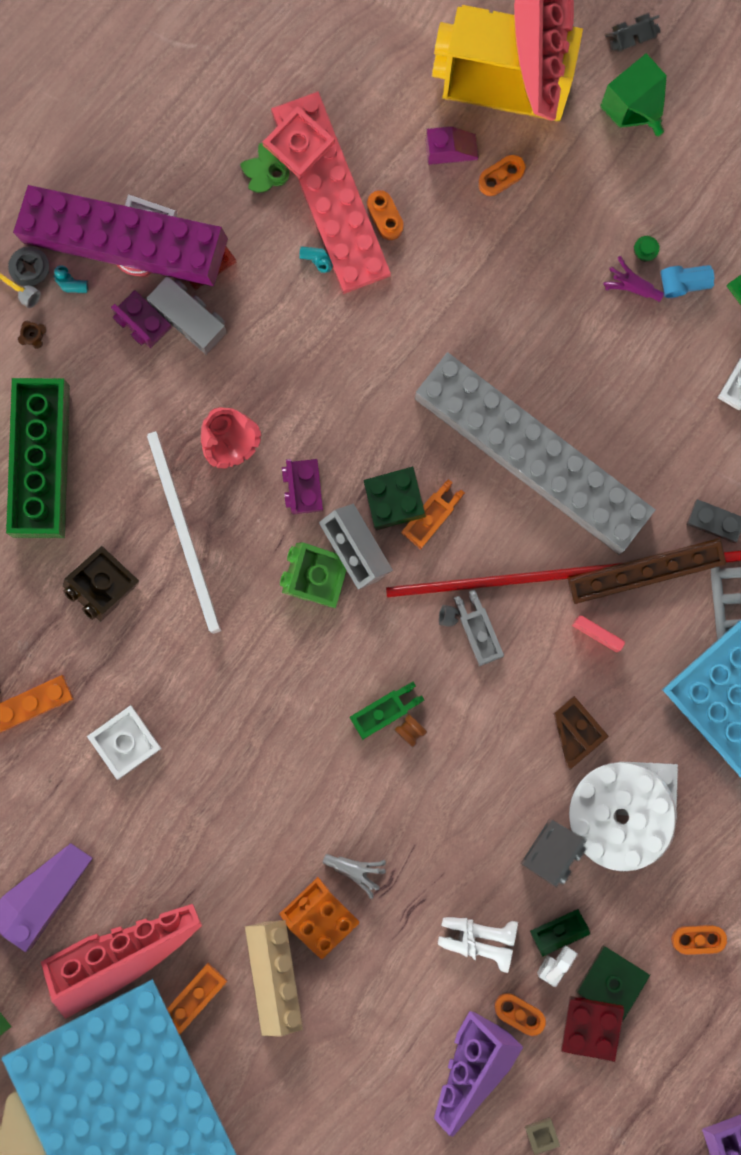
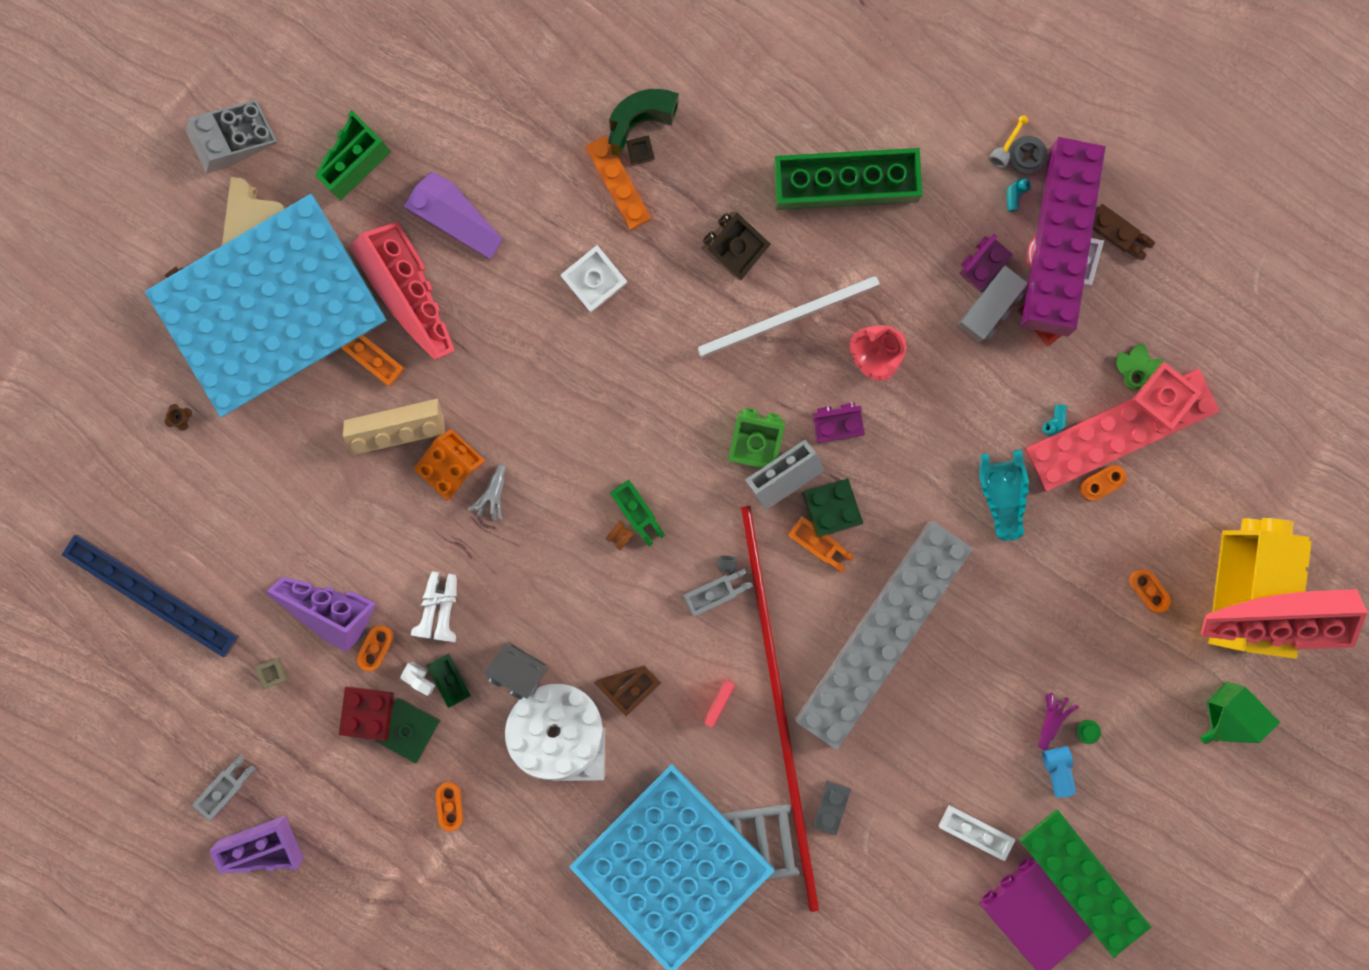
camera: 90 degrees right, 5 degrees up
(28, 328) = (968, 158): reddish brown plate -> none
(120, 176) = (1120, 232): none -> reddish brown hinge
(387, 315) = (1005, 491): none -> teal animal
(450, 145) = (1175, 540): magenta slope -> none
(643, 28) = (1307, 719): dark grey hinge -> none
(646, 571) = (780, 745): reddish brown tile -> none

